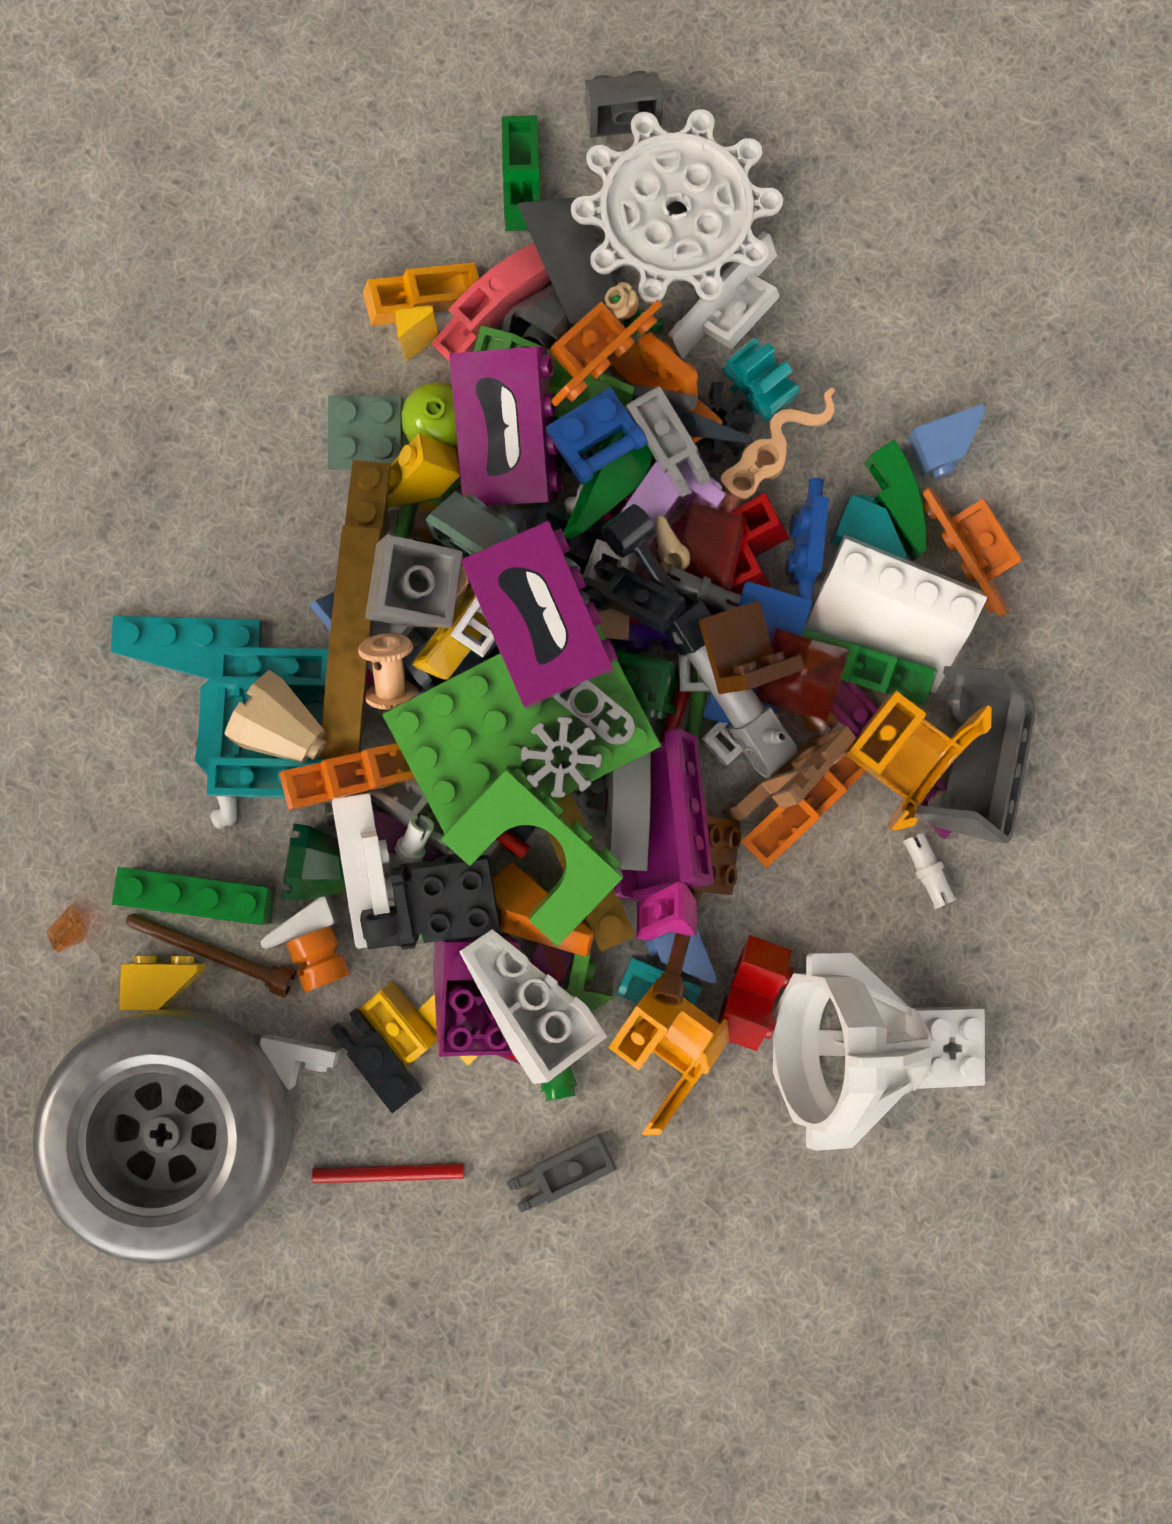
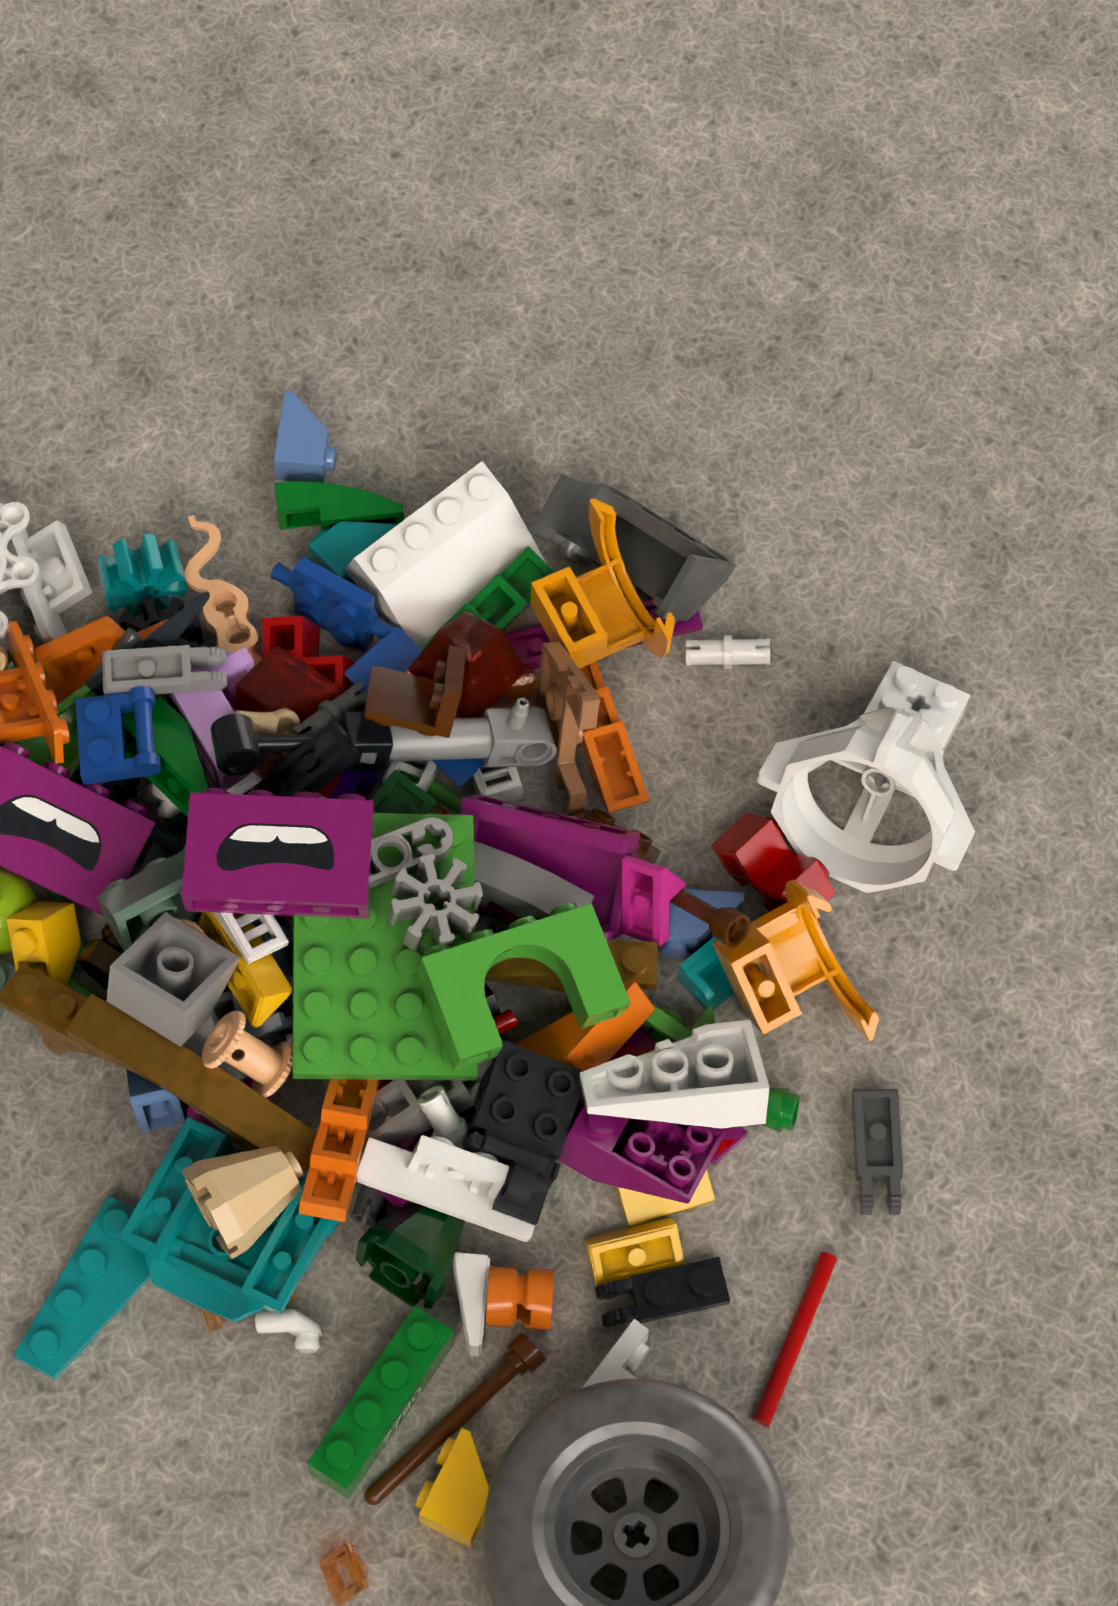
camera: 65 degrees left, 20 degrees down
(980, 542) = (417, 457): orange bracket -> none

